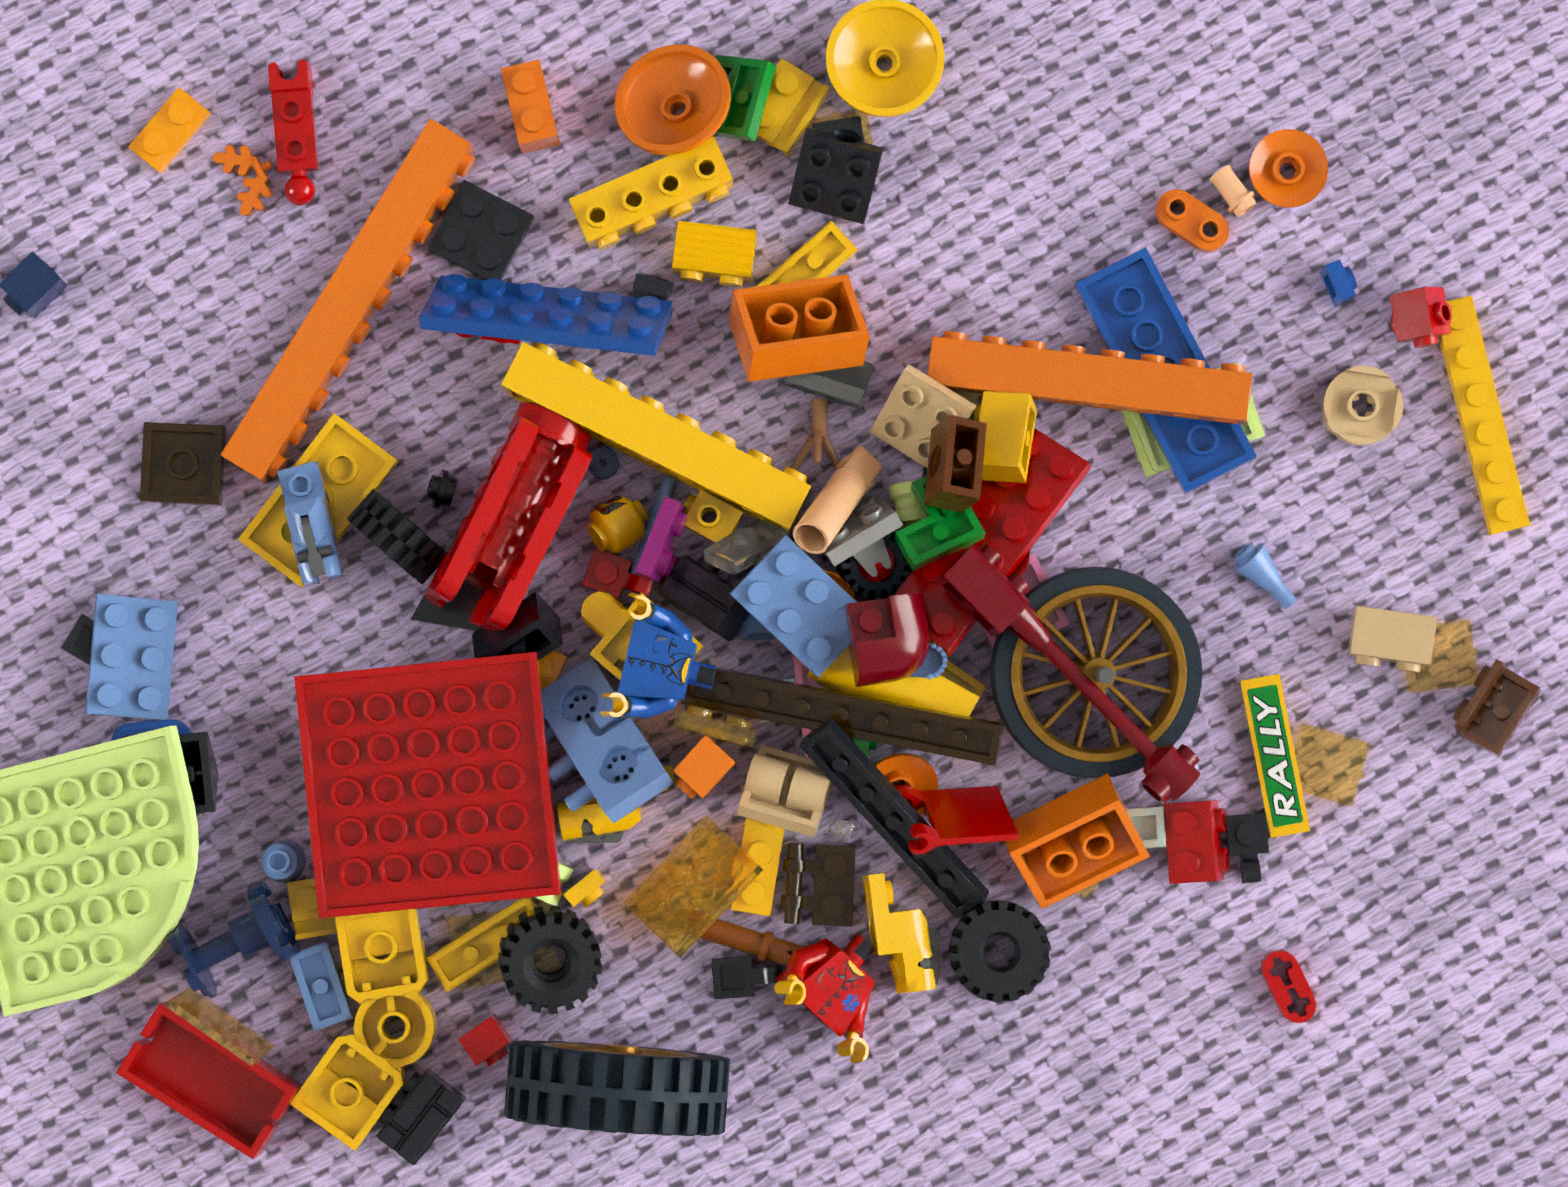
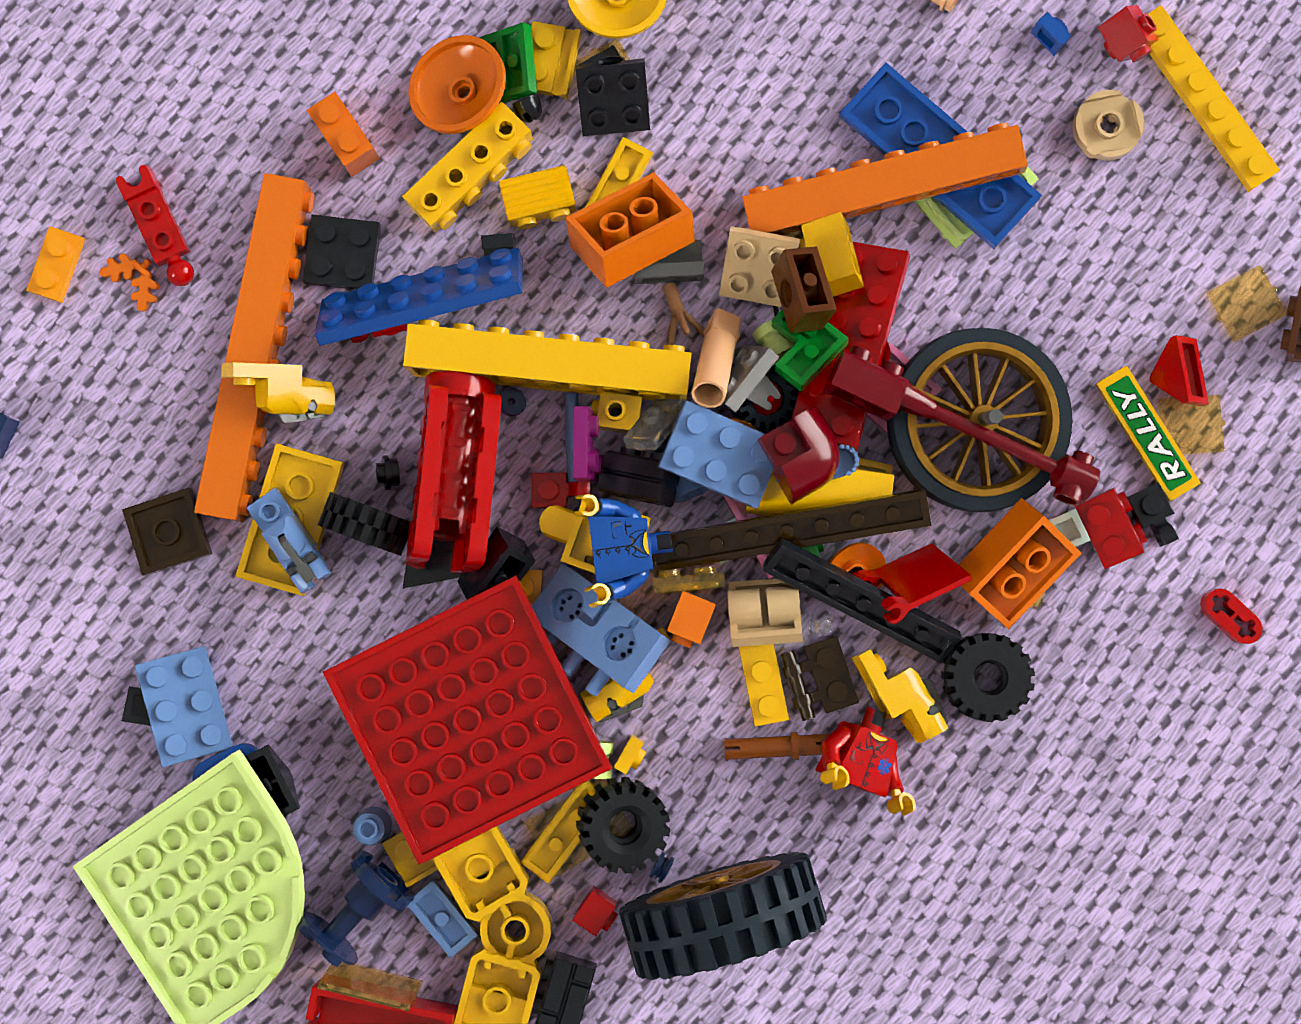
camera: 20 degrees left, 0 degrees up
(364, 361) = (283, 390): none -> yellow plate
(574, 1021) = (661, 867): none -> dark blue piece
(617, 524) = (542, 446): yellow head -> none
(693, 886) = (717, 719): clear yellow plate -> none
(737, 978) = (781, 779): black plate -> none
(741, 152) = (528, 108): none -> black hinge
(1190, 223) = (913, 32): orange plate -> none
(1257, 566) = (1074, 285): medium blue cone -> none
(1336, 703) = (1181, 371): none -> red slope
(1392, 638) = (1206, 301): tan brick -> none

